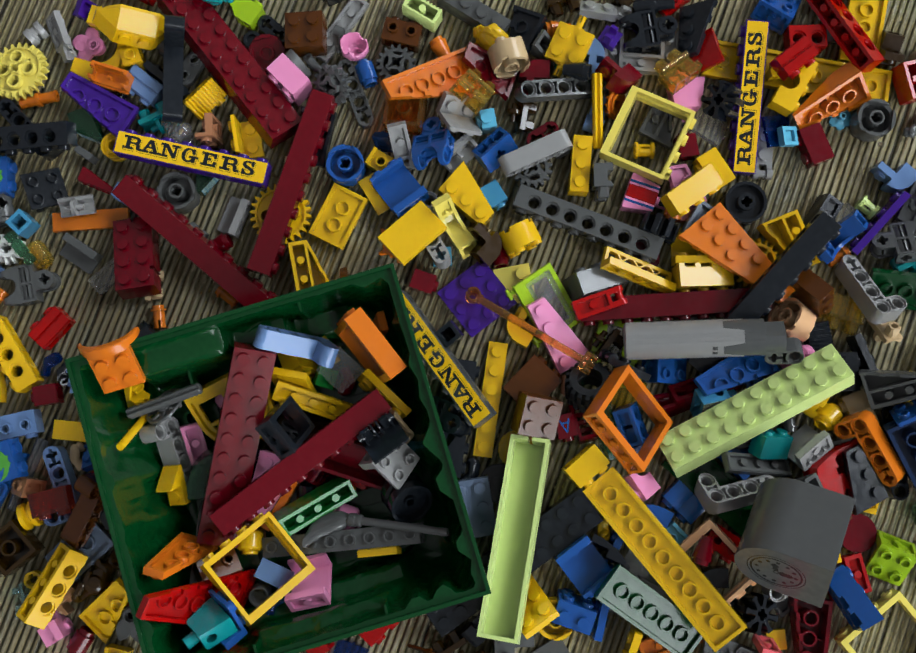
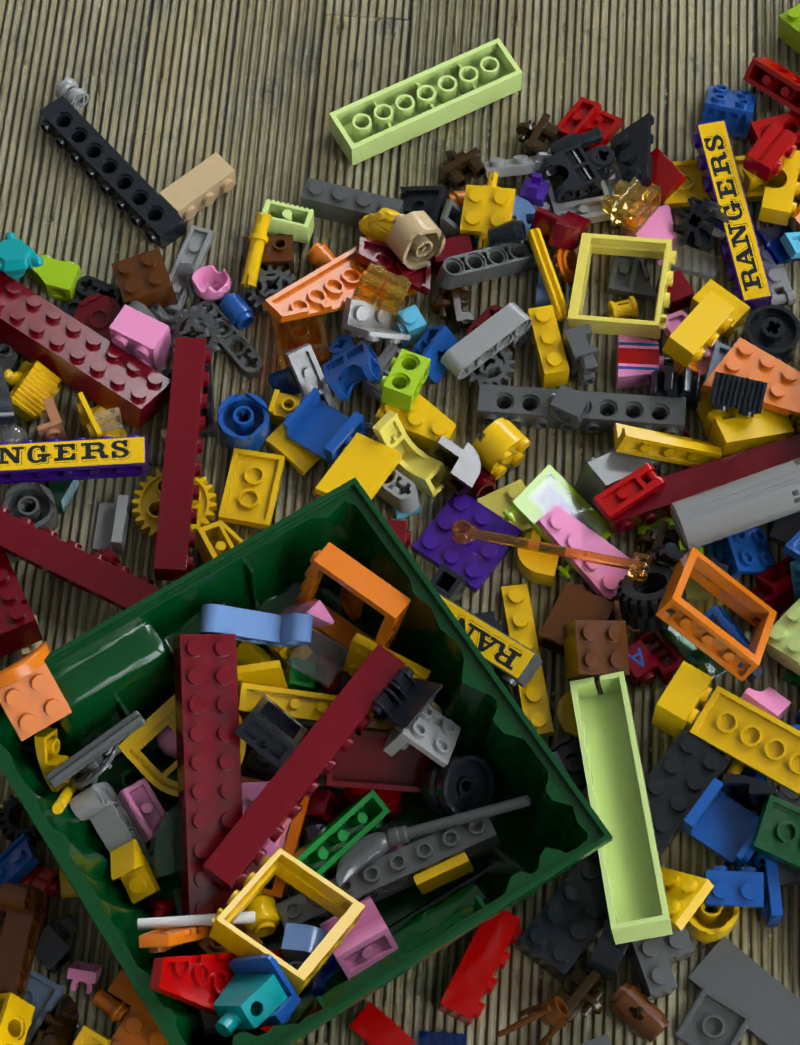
camera: 15 degrees left, 20 degrees down
(190, 512) = (161, 906): none -> red arm
(193, 84) = (12, 378): none -> yellow arm
(196, 543) = (189, 921): none -> white bar
(250, 138) = (109, 419): none -> clear tile
(338, 339) = (316, 608): none -> bright pink slope
(391, 31) = (258, 239): none -> yellow pin
(469, 171) = (405, 380): none -> lime brick
(495, 195) = (451, 406): dark azure brick -> none
(577, 223) = (568, 406): none -> dark grey brick
(701, 251) = (737, 393): none -> black brick

